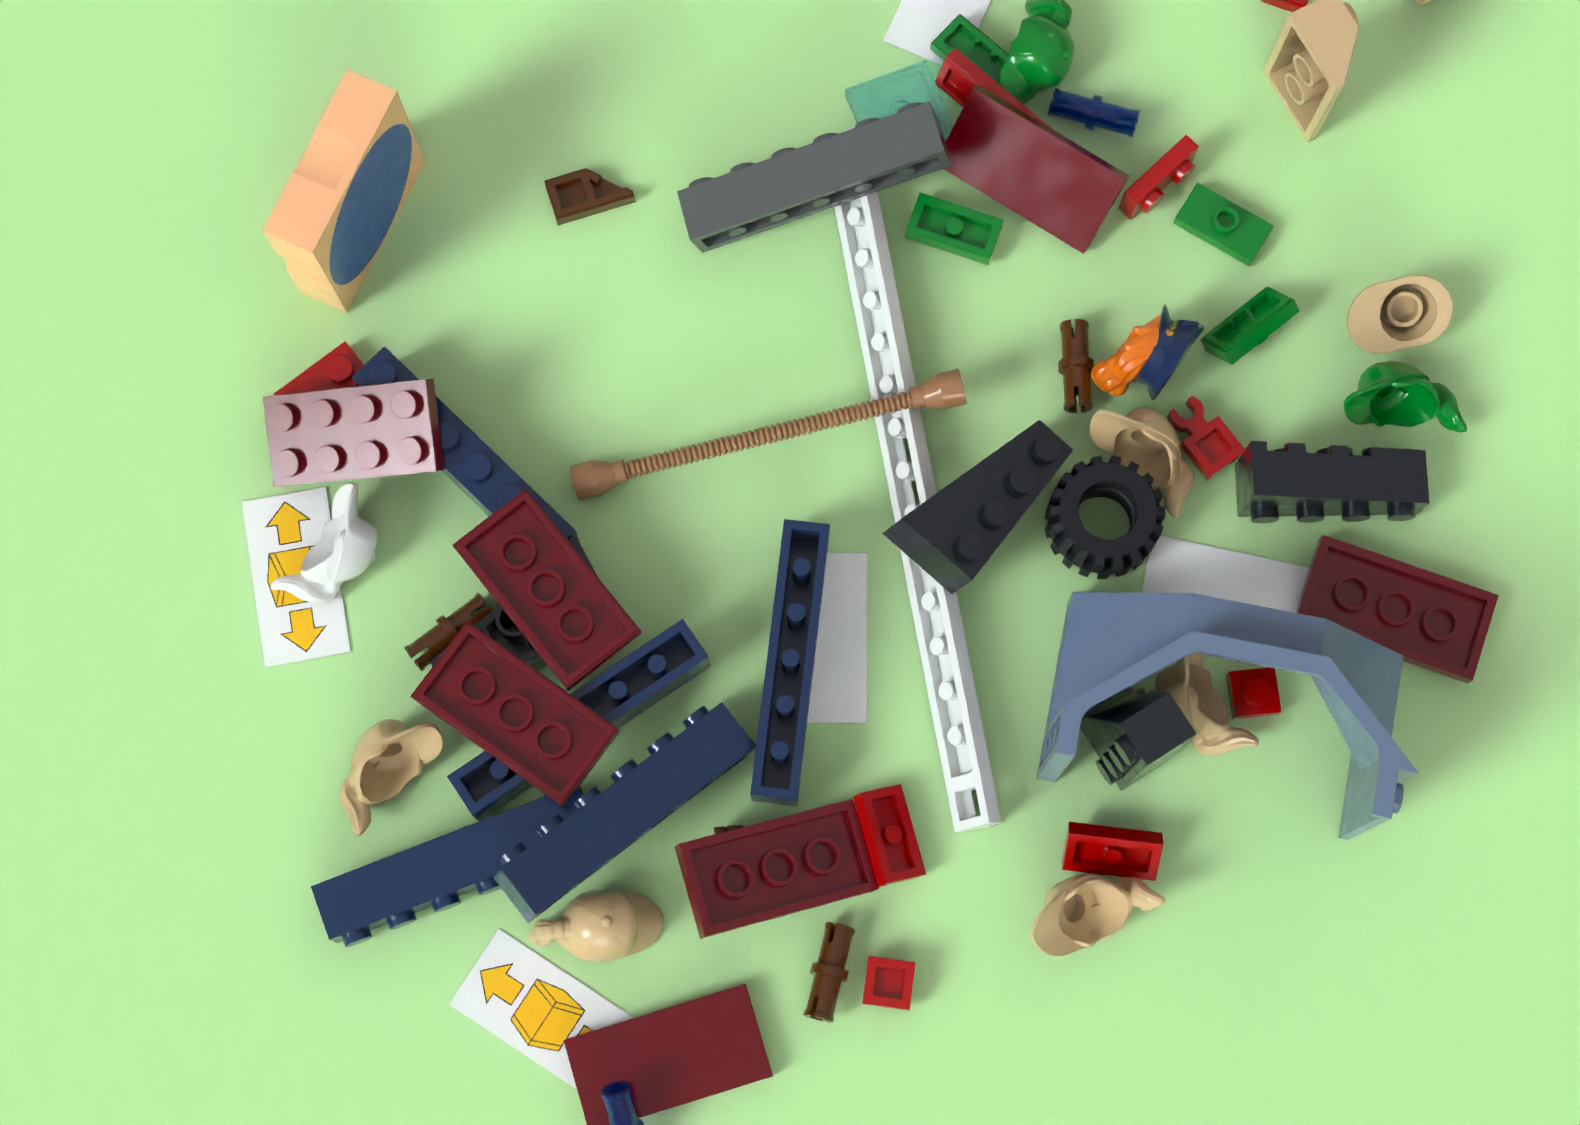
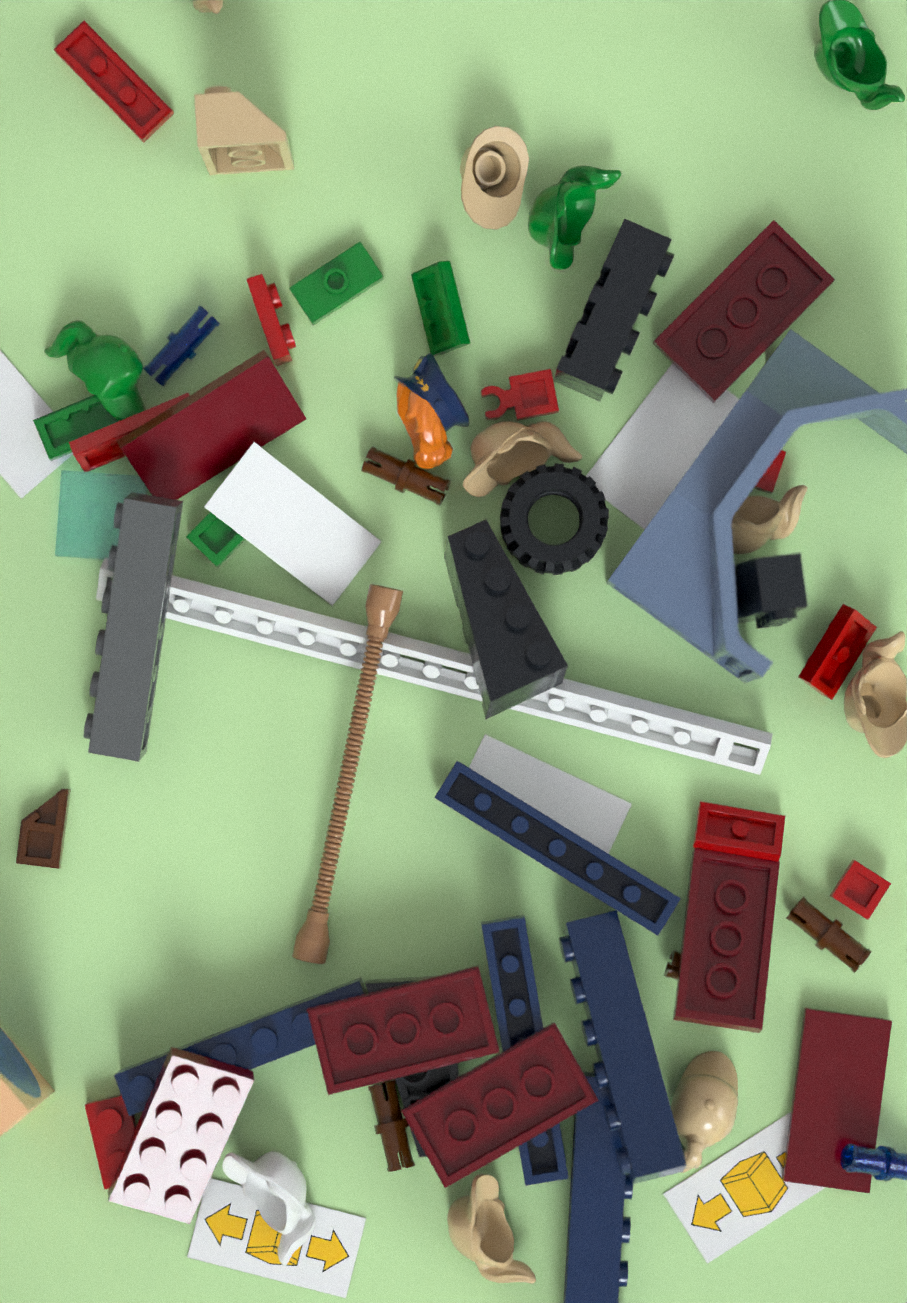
camera: 60 degrees left, 10 degrees up
(979, 283) = (292, 524): none -> white sticker

